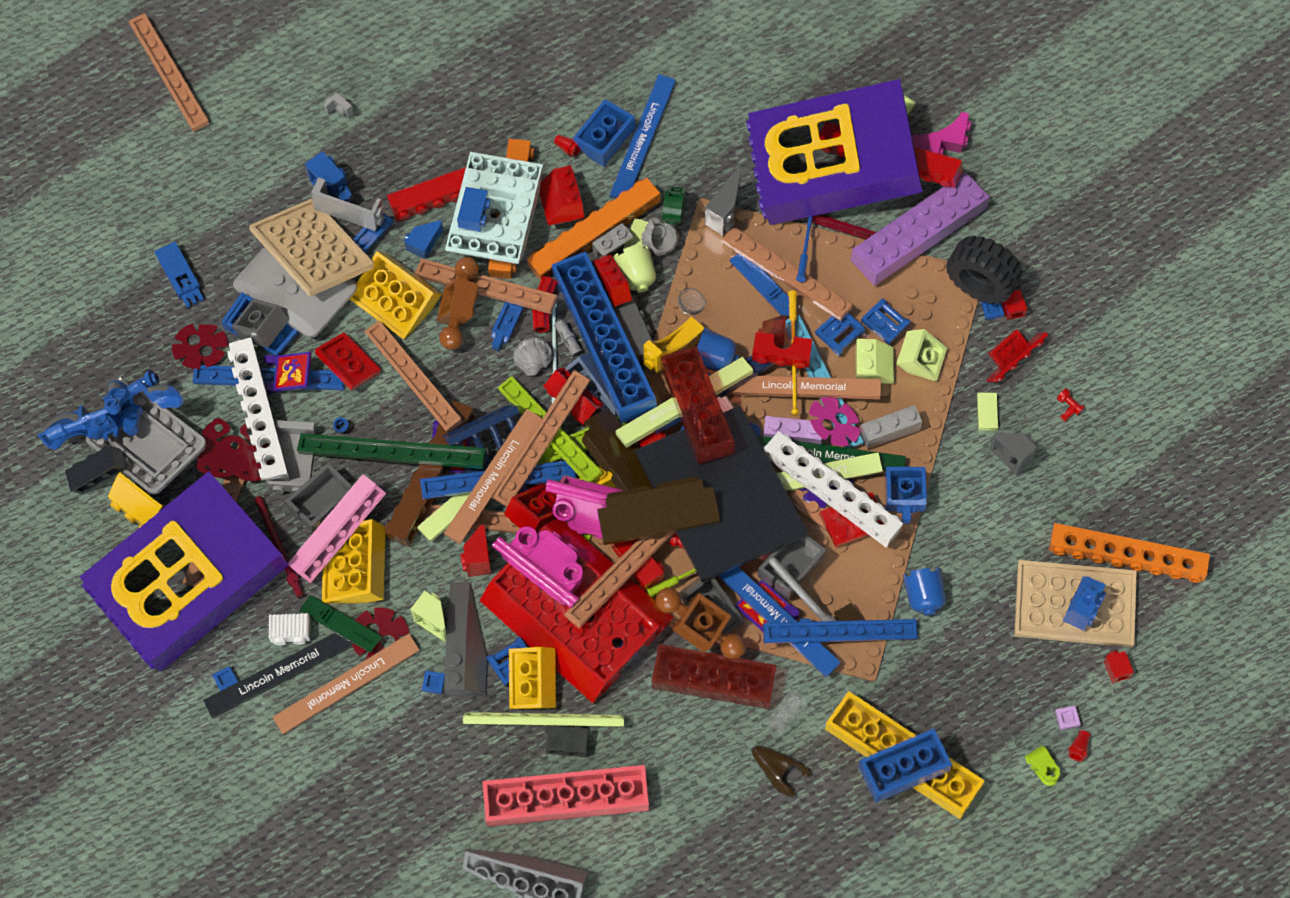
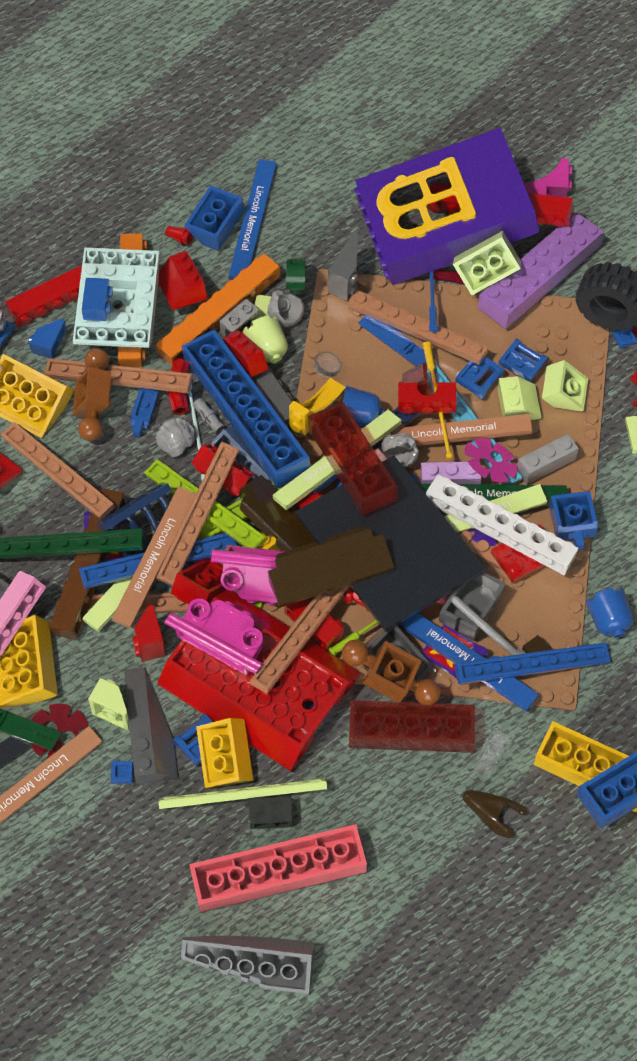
camera: 10 degrees left, 5 degrees down
(749, 398) = (402, 447): none -> light grey hair
(864, 217) = (487, 263): none -> yellowish green brick

